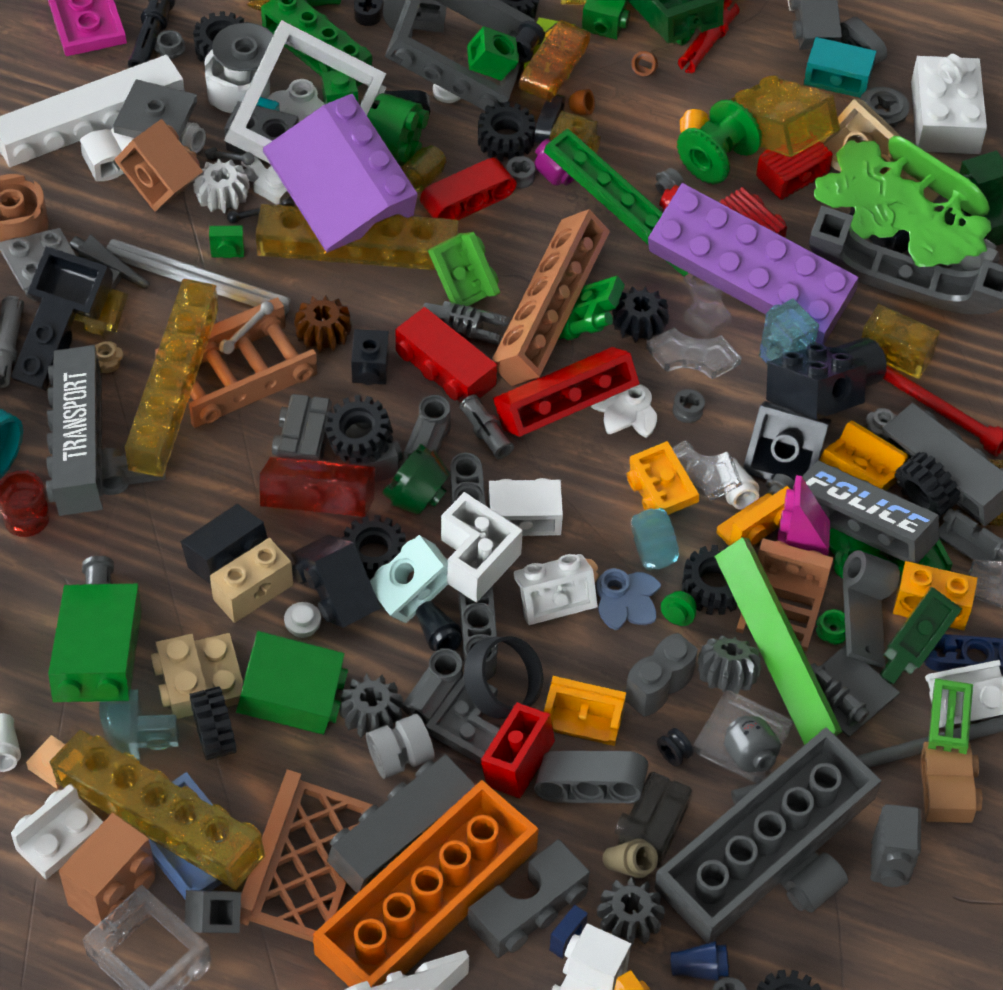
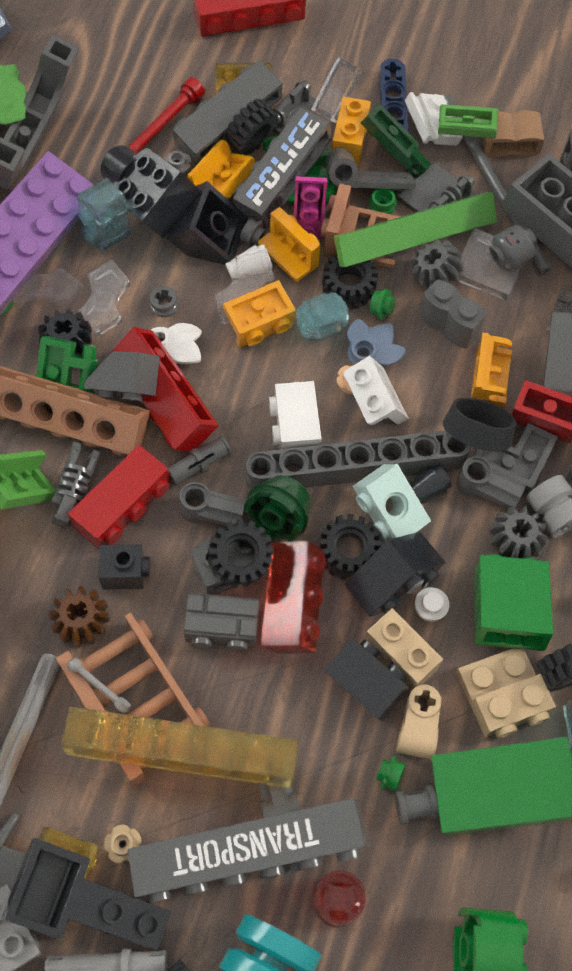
camera: 95 degrees left, 10 degrees up
(131, 564) = (390, 774): none -> green plate
(173, 588) = (420, 729): none -> tan piece
(483, 546) = (373, 430): white brick -> none
(571, 349) = (125, 373): none -> dark grey slope
(675, 747) = (514, 306): black bush -> none
(904, 341) = (92, 142): clear yellow brick -> none

